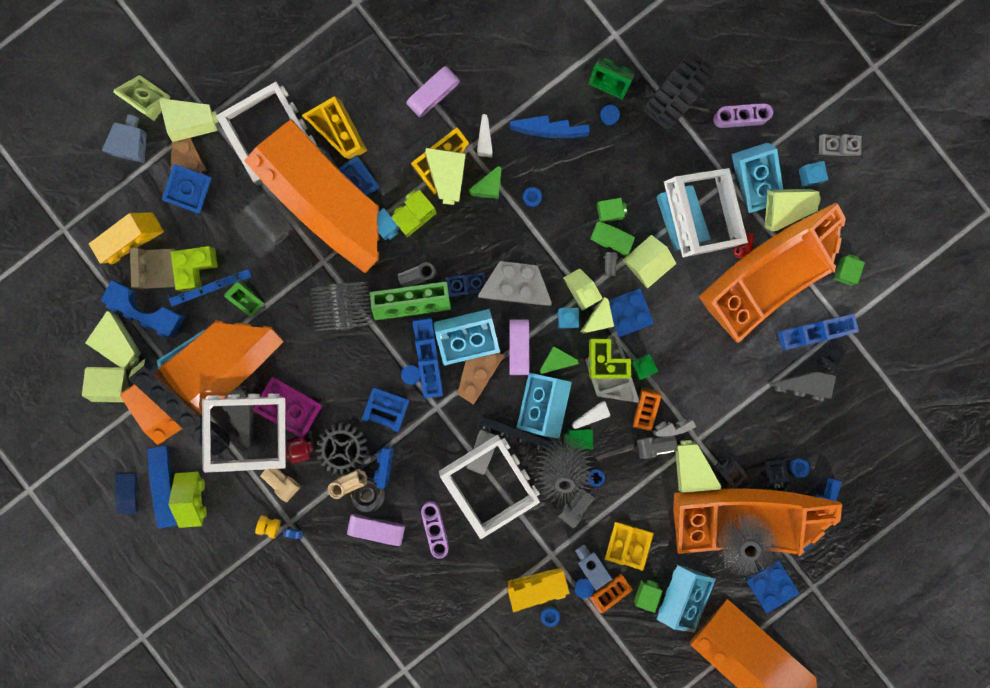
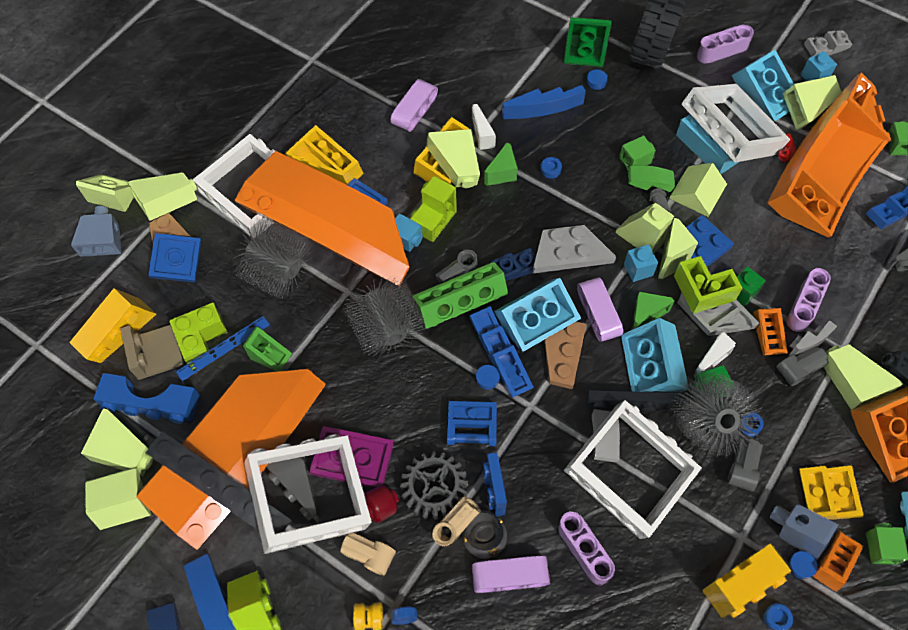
camera: 15 degrees left, 25 degrees down
(697, 389) = (813, 292): none -> lavender beam

